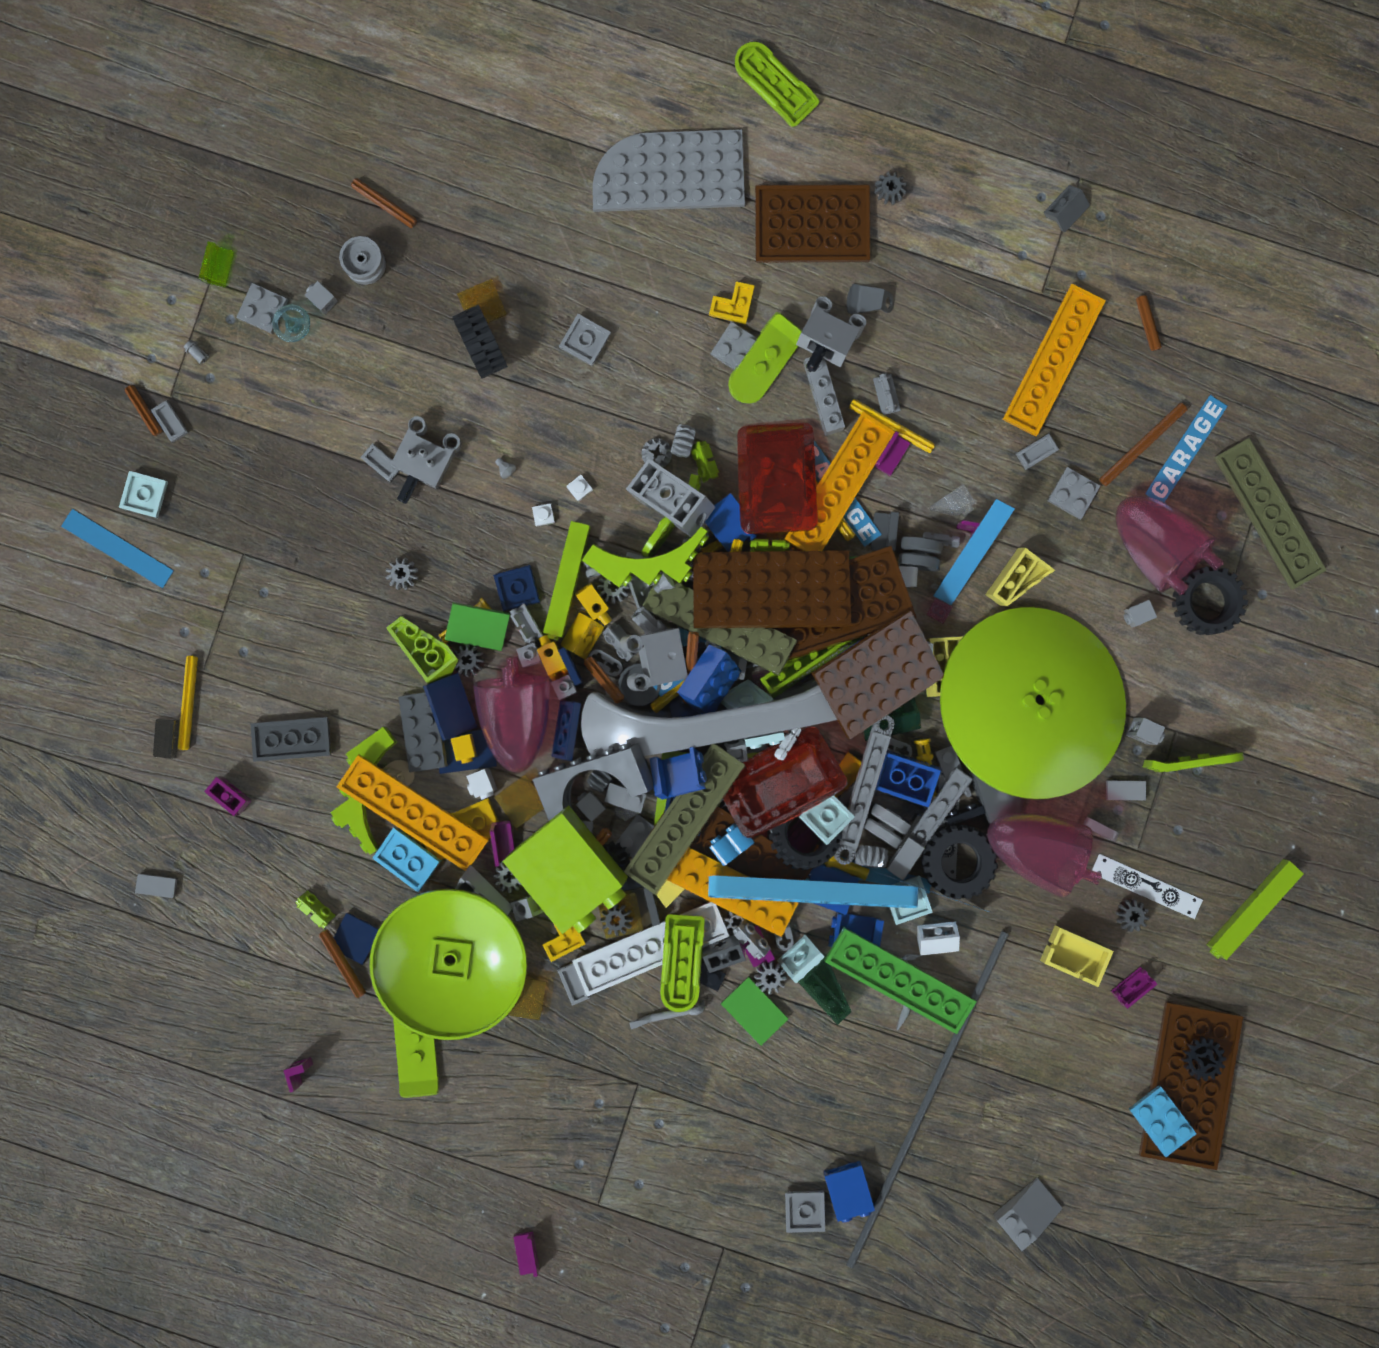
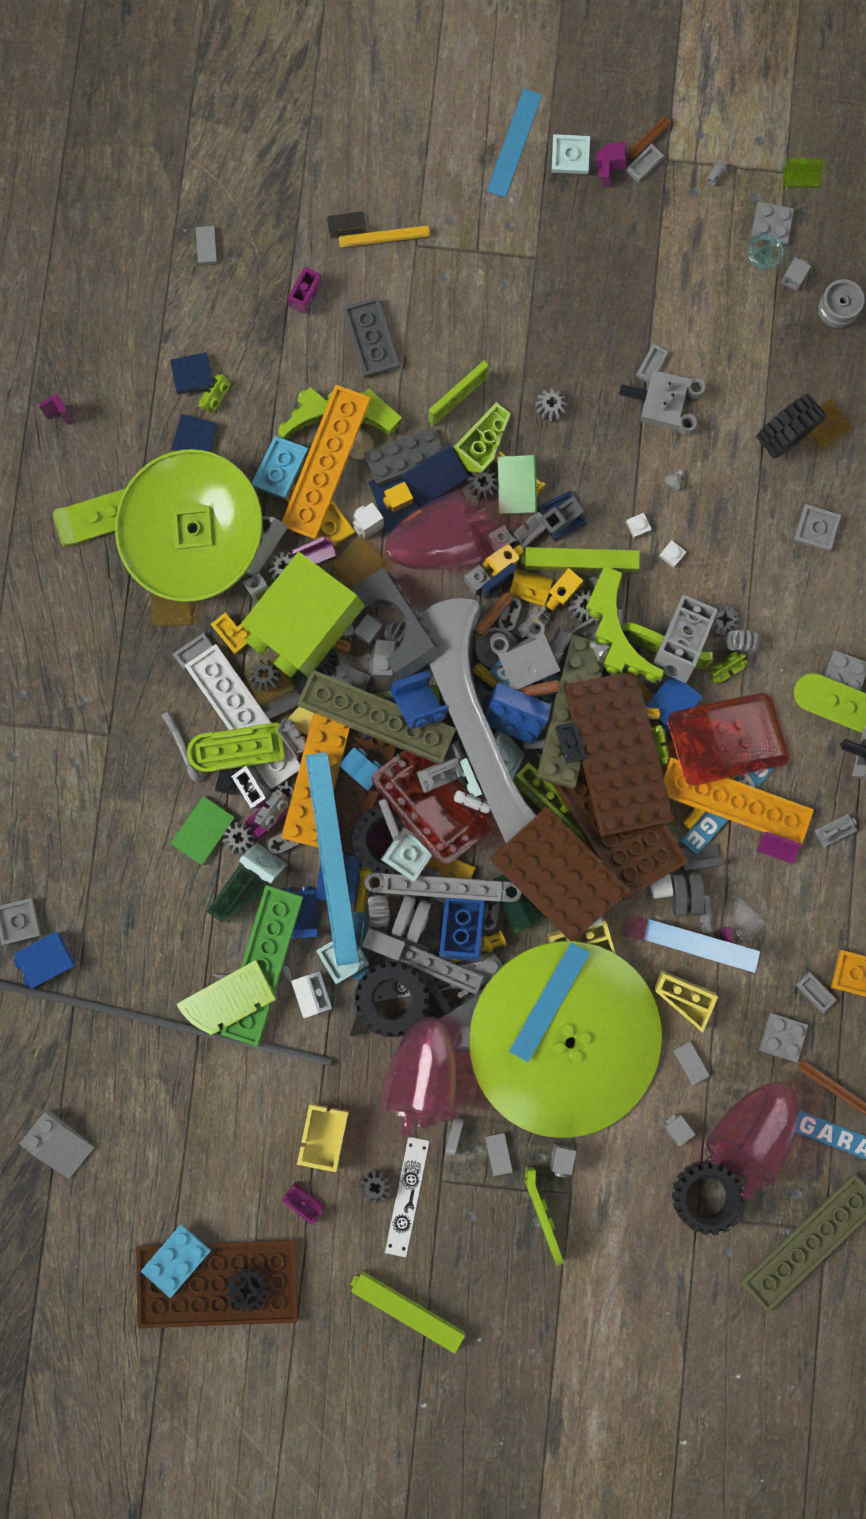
camera: 70 degrees right, 5 degrees down
(157, 456) = (611, 158): none -> magenta brick
(288, 928) = (192, 373): none -> dark blue tile
(342, 963) = (168, 429): dark orange axle -> none
(370, 664) = (458, 393): none -> lime tile
(519, 589) = (561, 517): none -> dark grey brick
(566, 730) = (436, 589): dark blue tile -> none
(683, 905) = (289, 733): none -> light grey hinge
(753, 634) = (570, 742): none -> black plate
(755, 769) = (439, 774): none -> light grey hinge
(791, 828) = (390, 820): none -> light grey tile
(825, 399) = (817, 770): light grey brick -> none
(904, 432) = (803, 853): yellow axle -> none
(925, 1020) = (228, 999): none -> lime piece
(999, 712) = (549, 1002): none -> dark azure sticker
(1079, 587) = (691, 1063): none -> light grey tile

